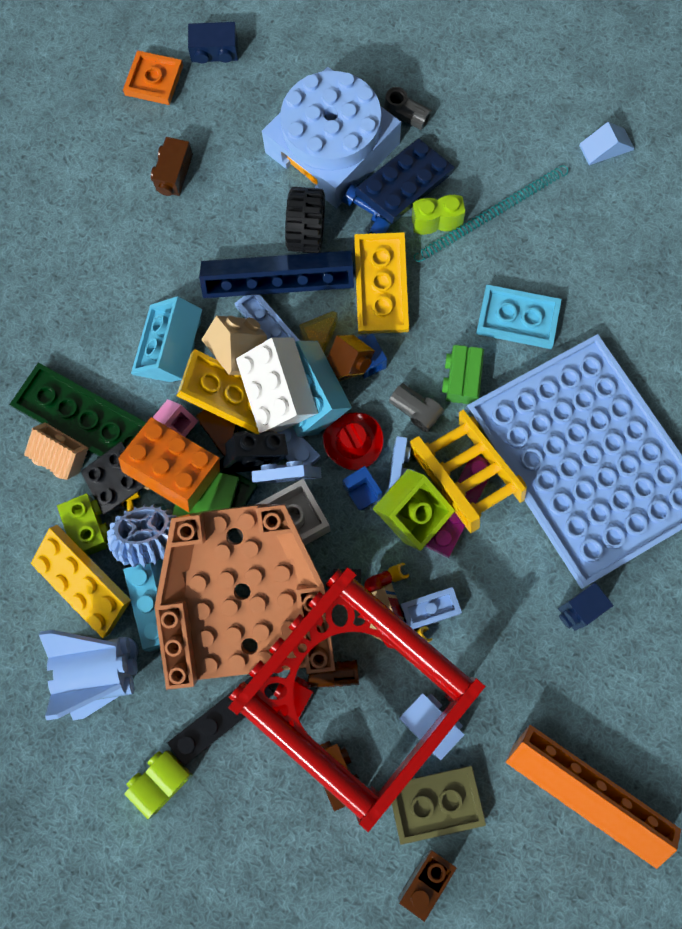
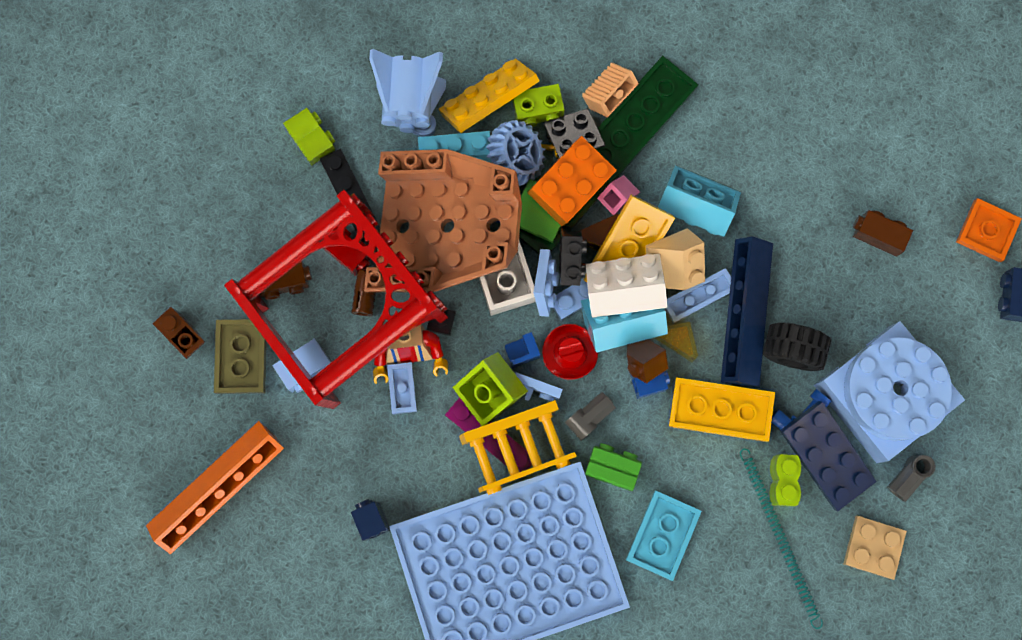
camera: 95 degrees right, 5 degrees up
(480, 132) = (875, 547): none -> tan plate

